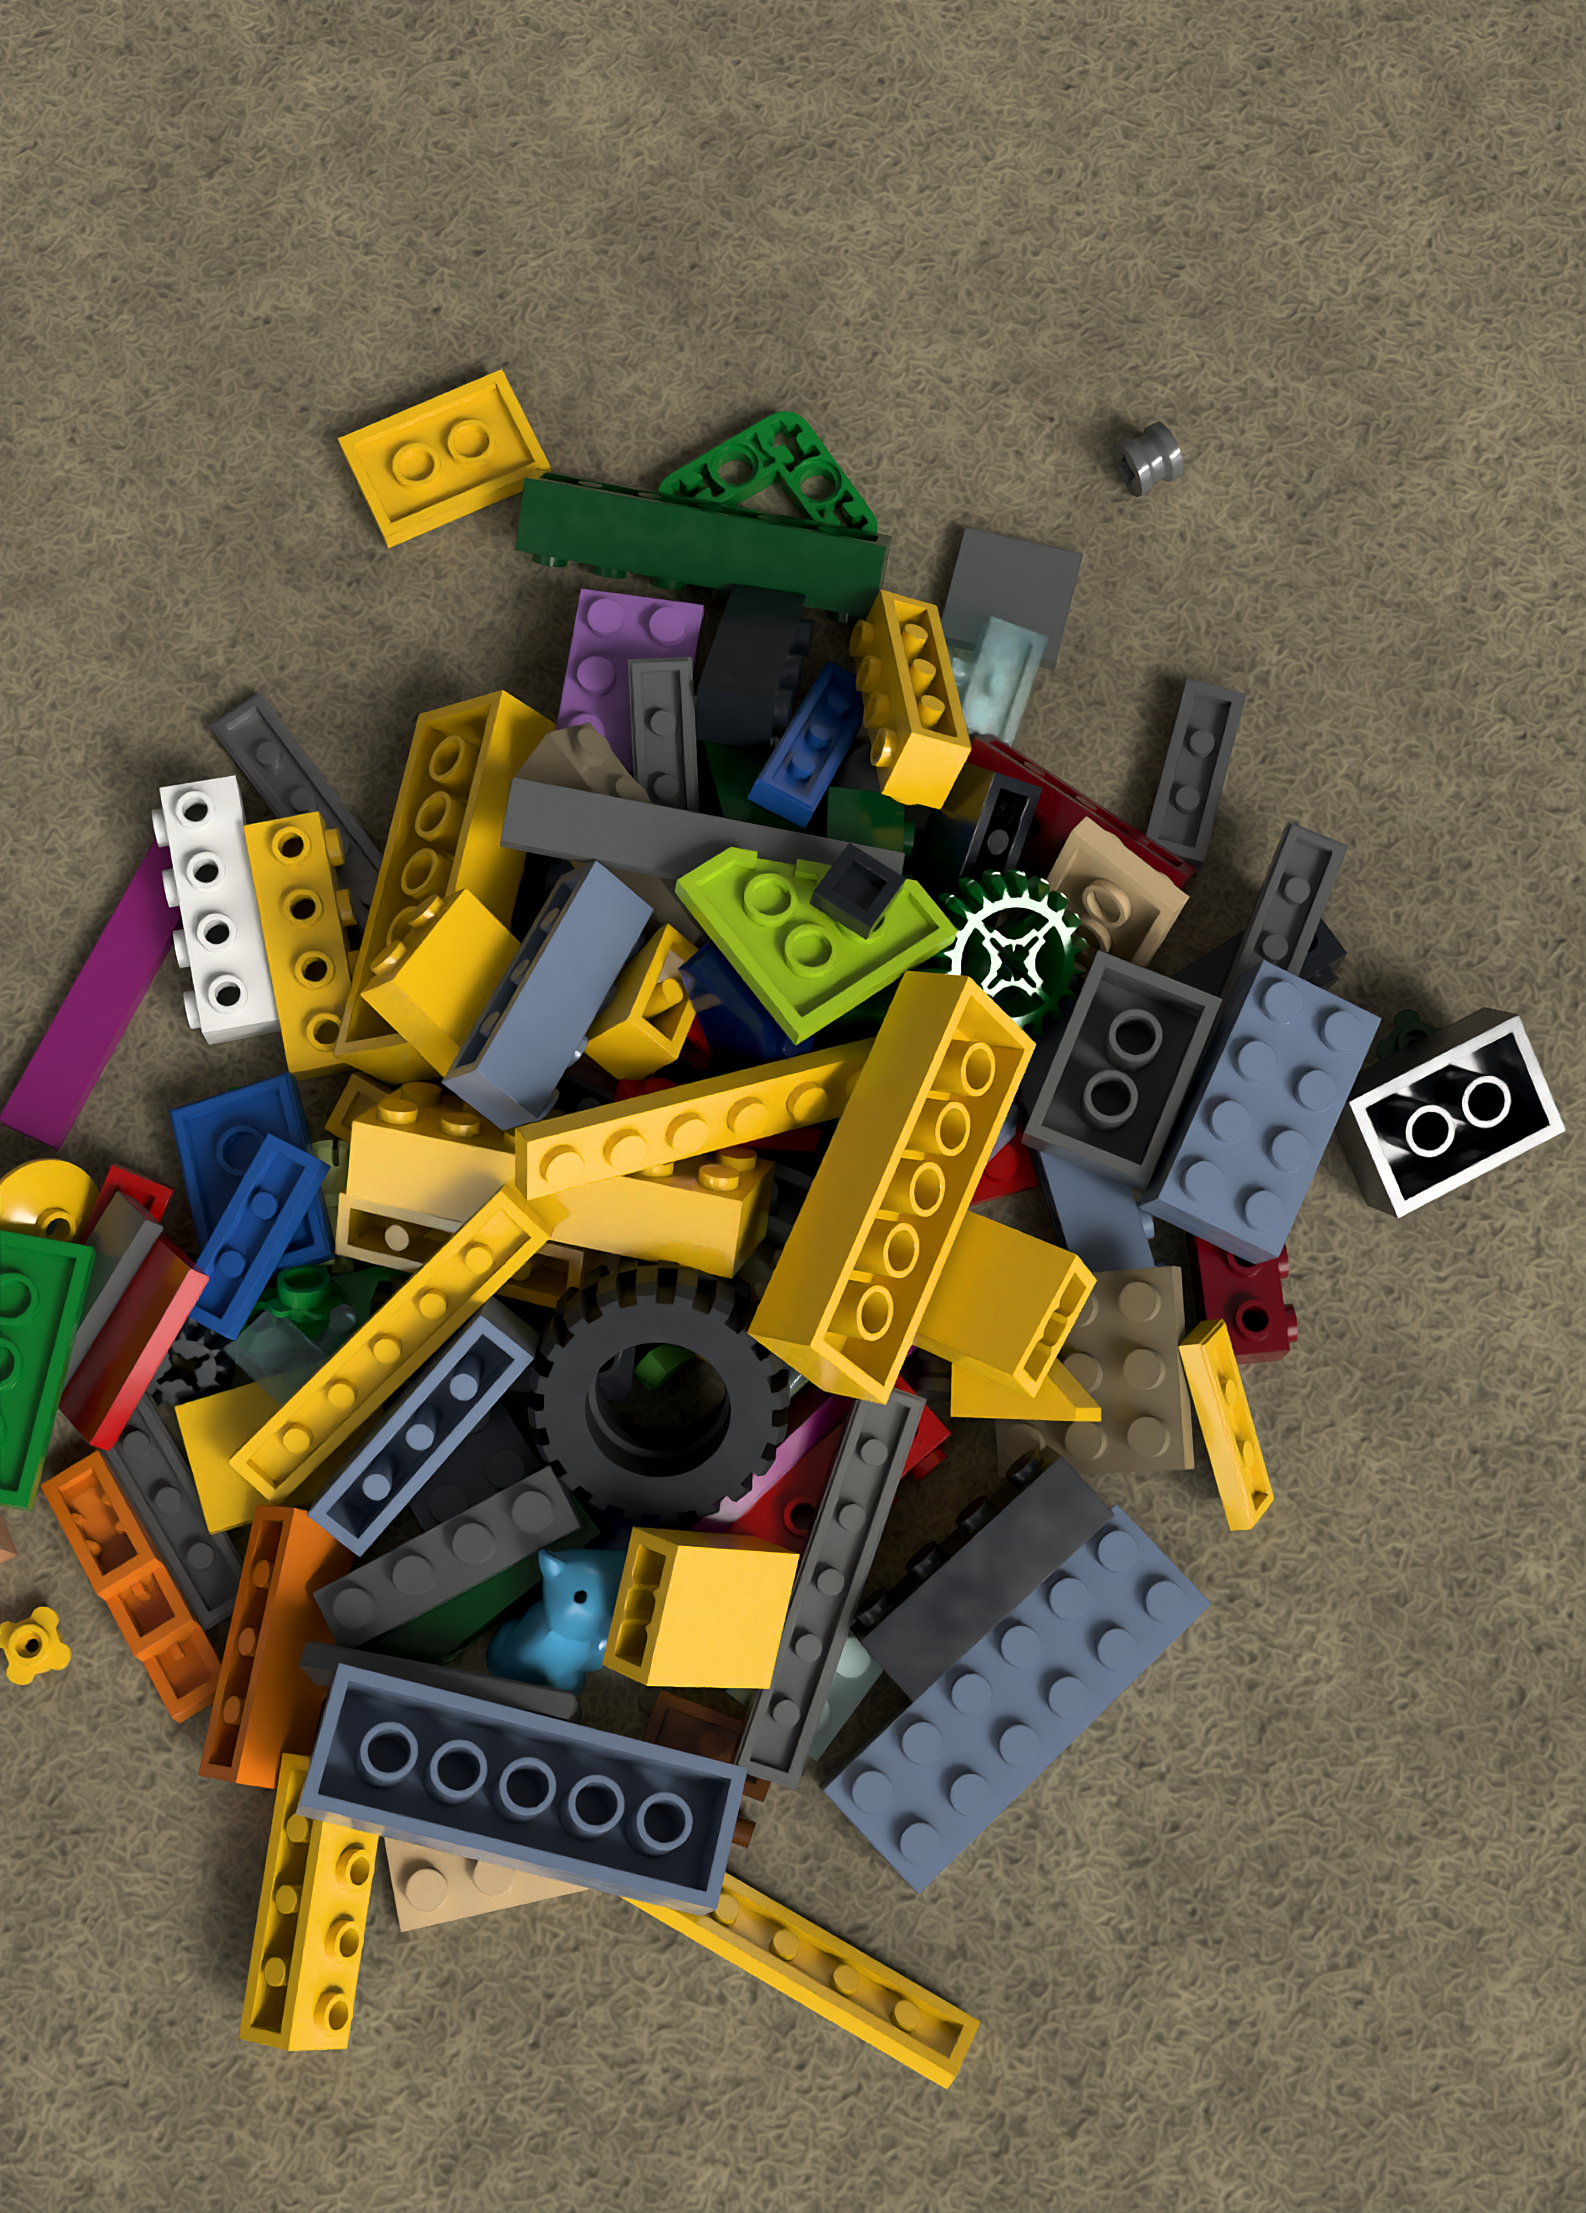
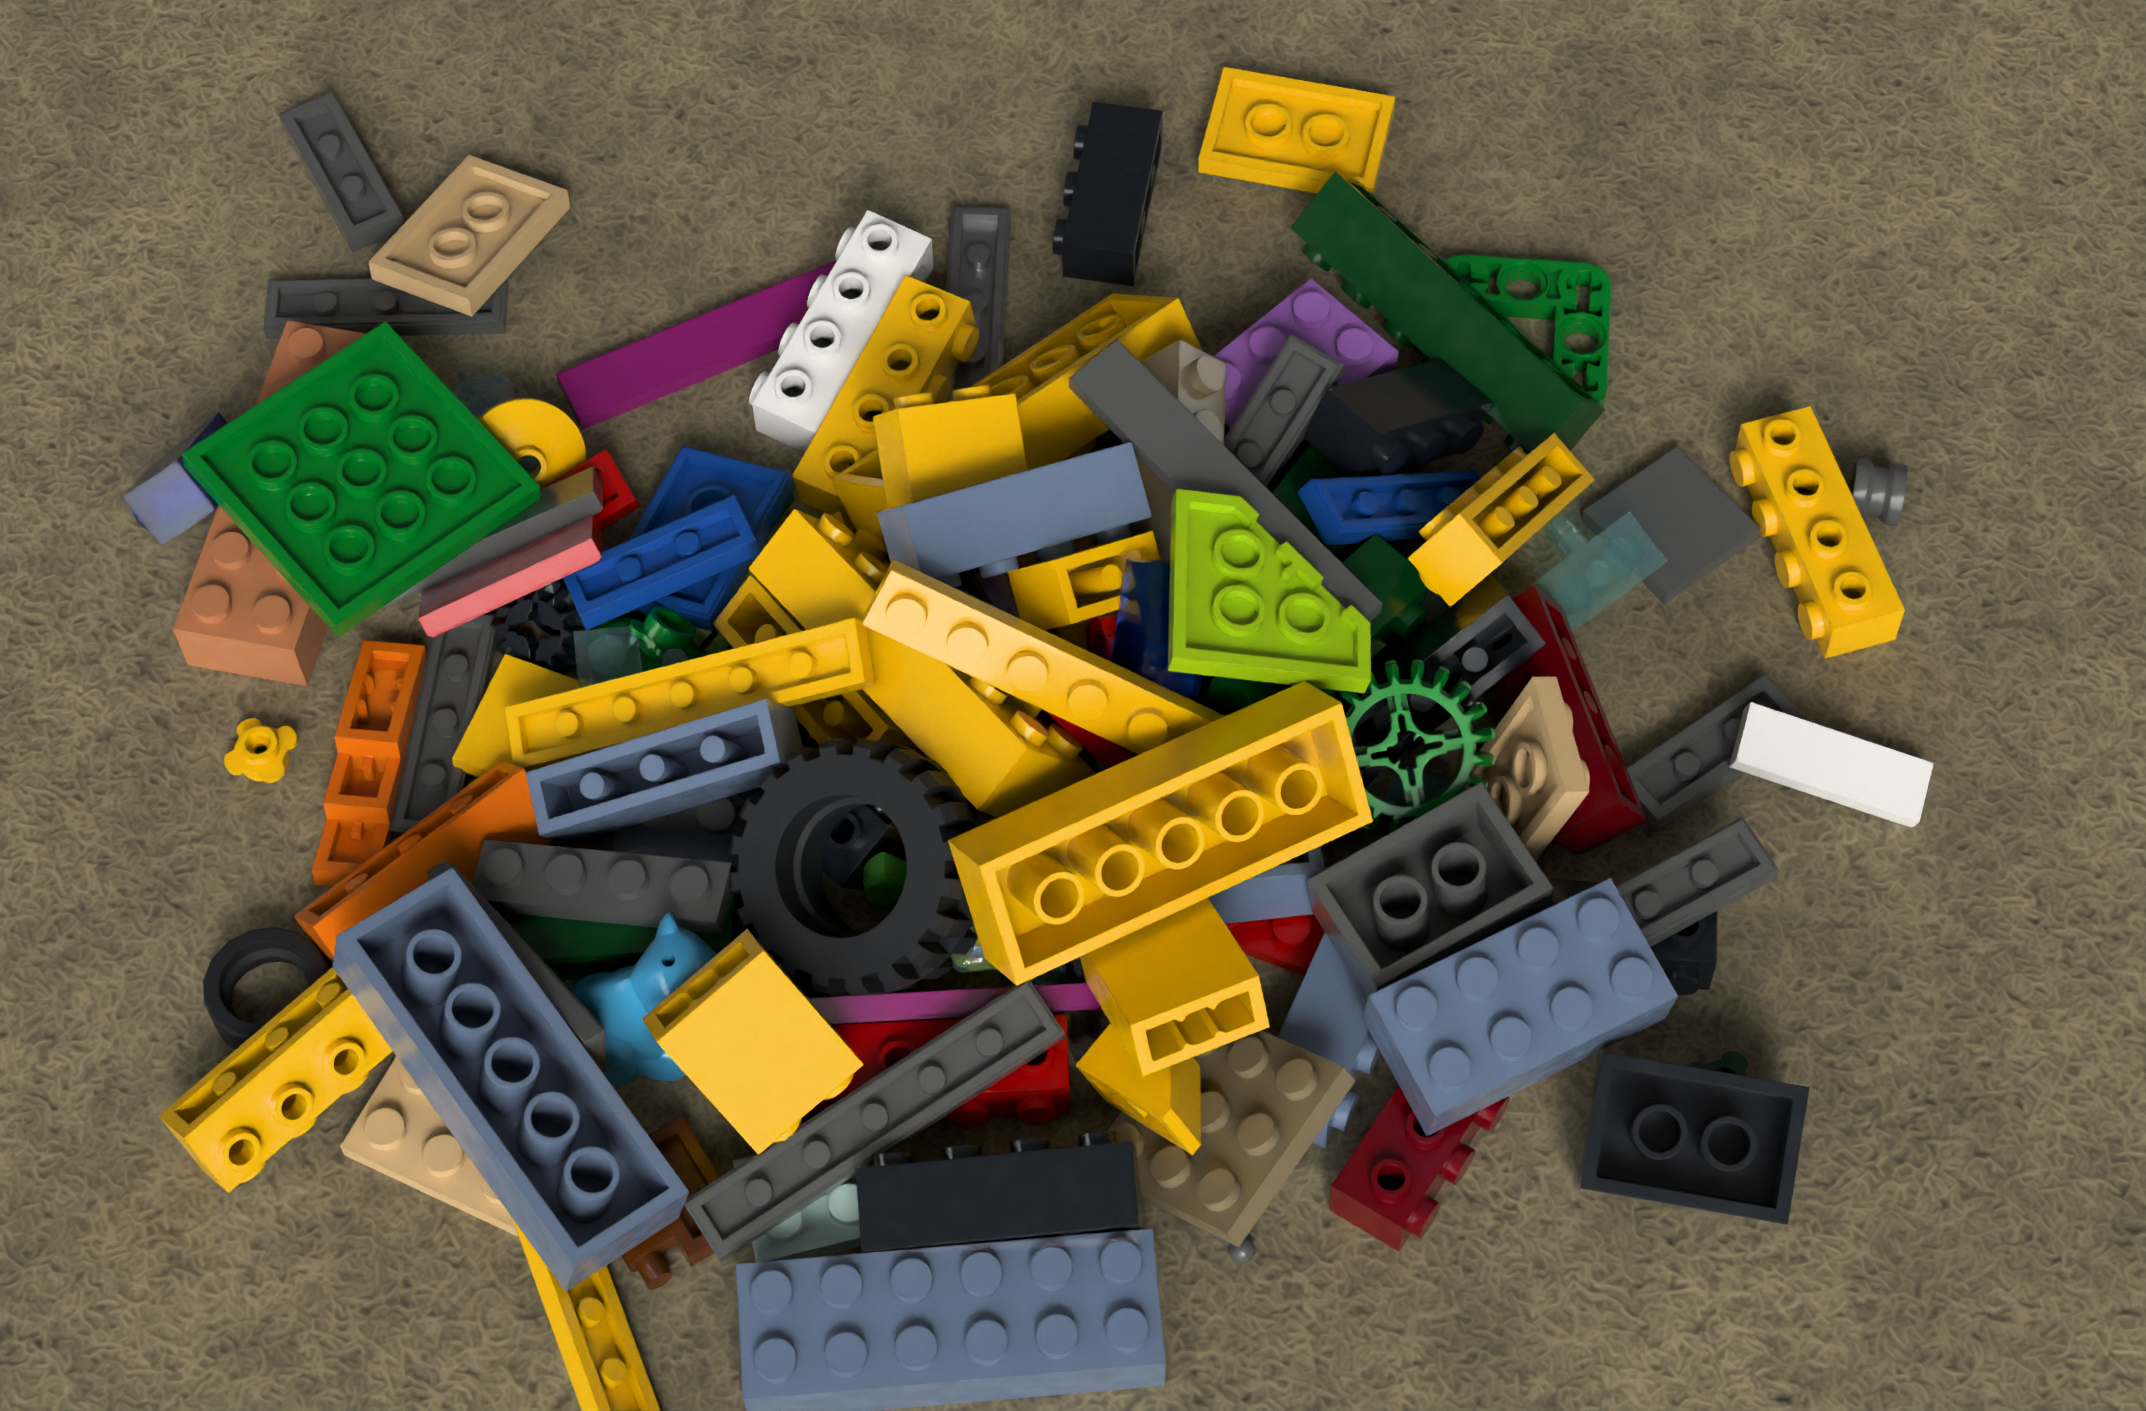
camera: 40 degrees right, 15 degrees down
(175, 1849) = (243, 955): none -> black tyre
(335, 620) = (1109, 193): none -> black brick
(857, 891) = (1309, 587): black plate -> none
(1129, 527) = (1816, 533): none -> yellow brick
(1226, 1424) = (1297, 1242): yellow tile -> none
(1293, 719) = (1831, 765): none -> white tile

